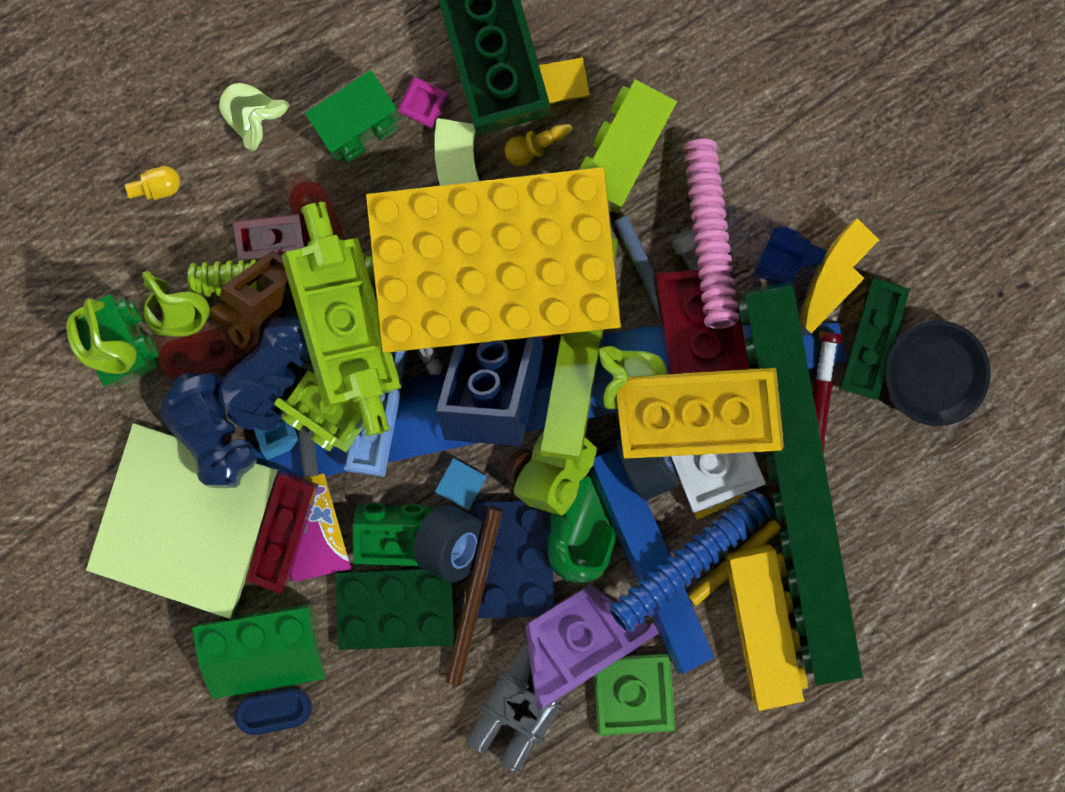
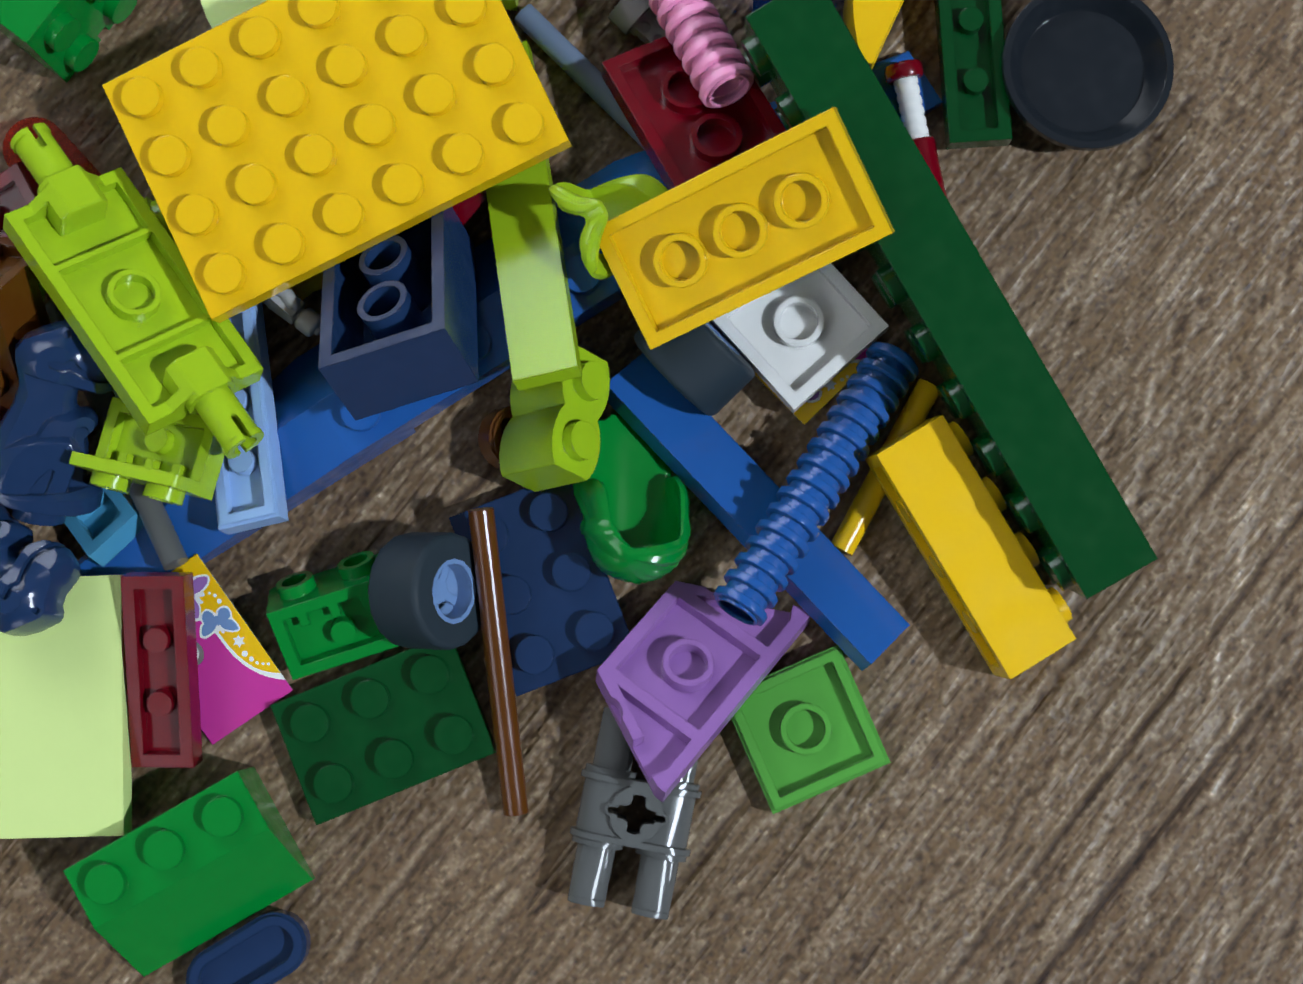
camera: 20 degrees left, 5 degrees down
(461, 484) = (419, 497): dark azure tile -> none

